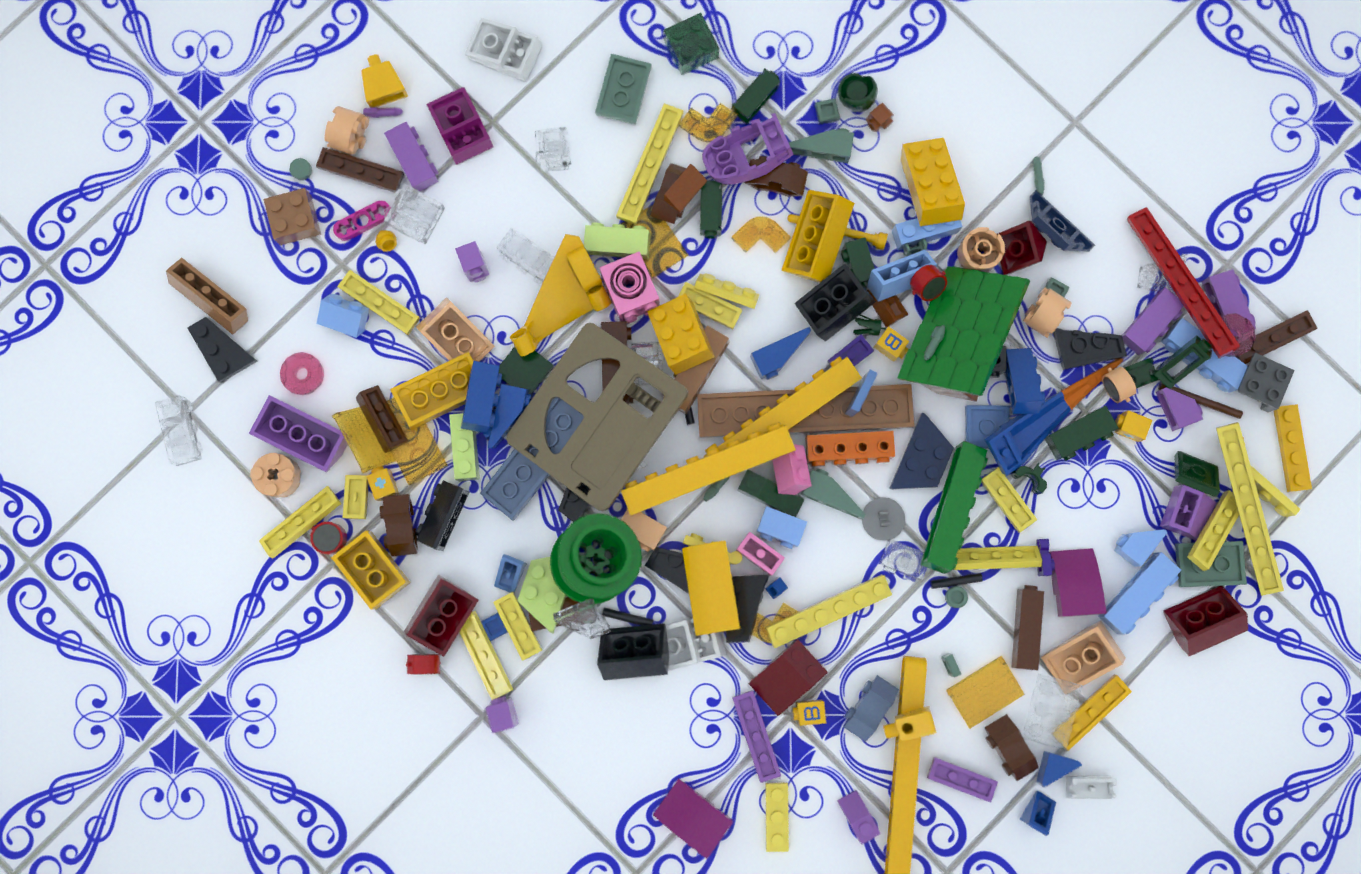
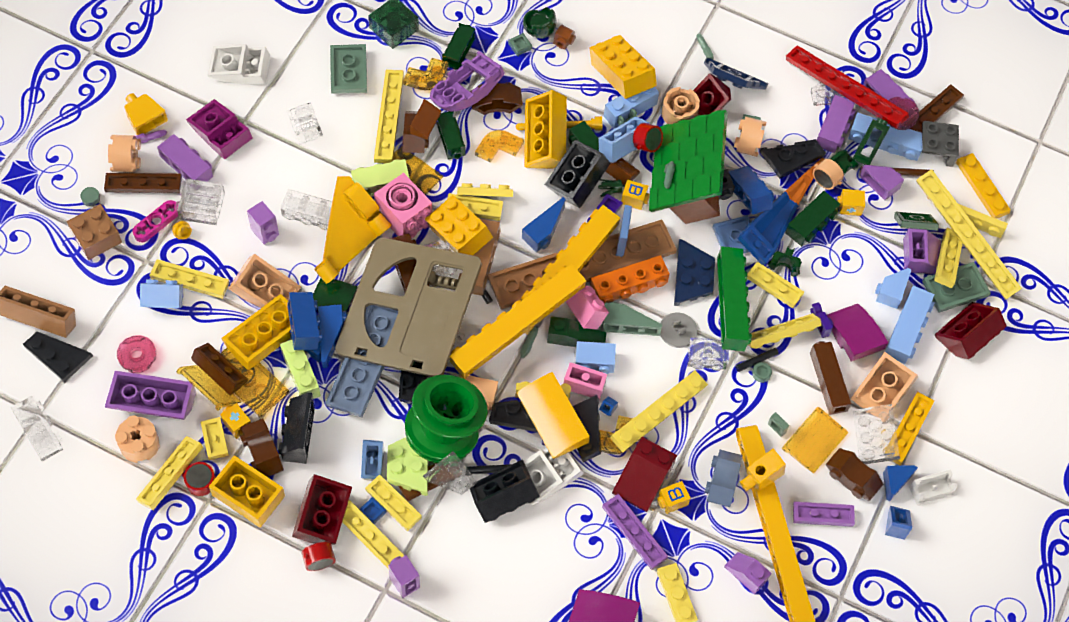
camera: 20 degrees left, 20 degrees down
(828, 145) = (527, 67): sand green slope -> none

